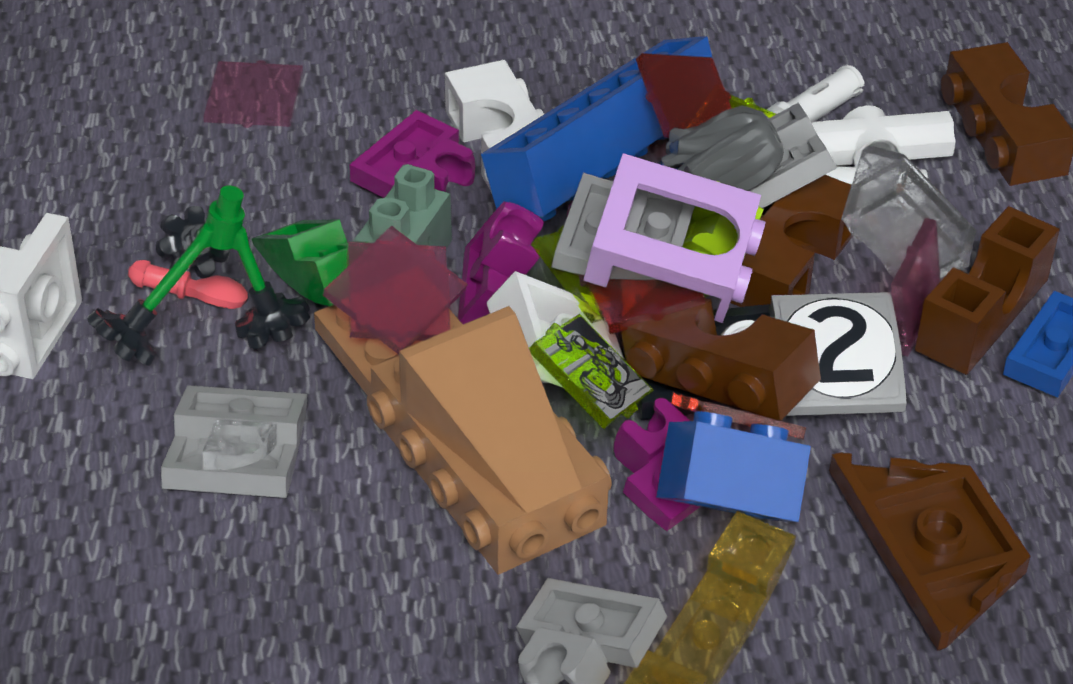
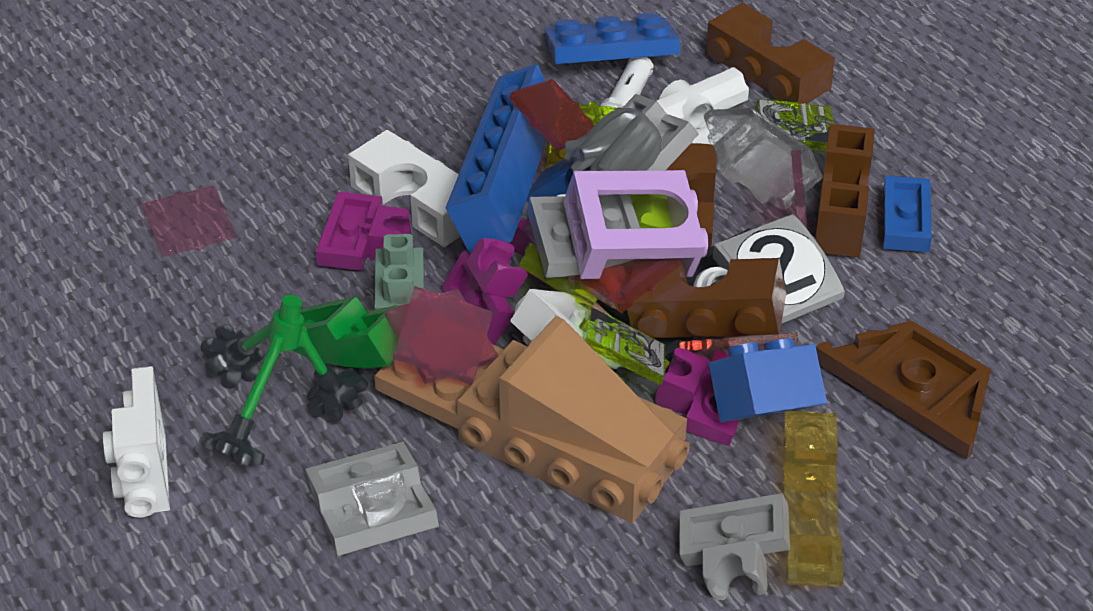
camera: 25 degrees left, 0 degrees up
(214, 290) = (277, 387): coral piece -> none
(831, 39) = (611, 39): none -> blue plate
(985, 193) = (803, 121): none -> piece

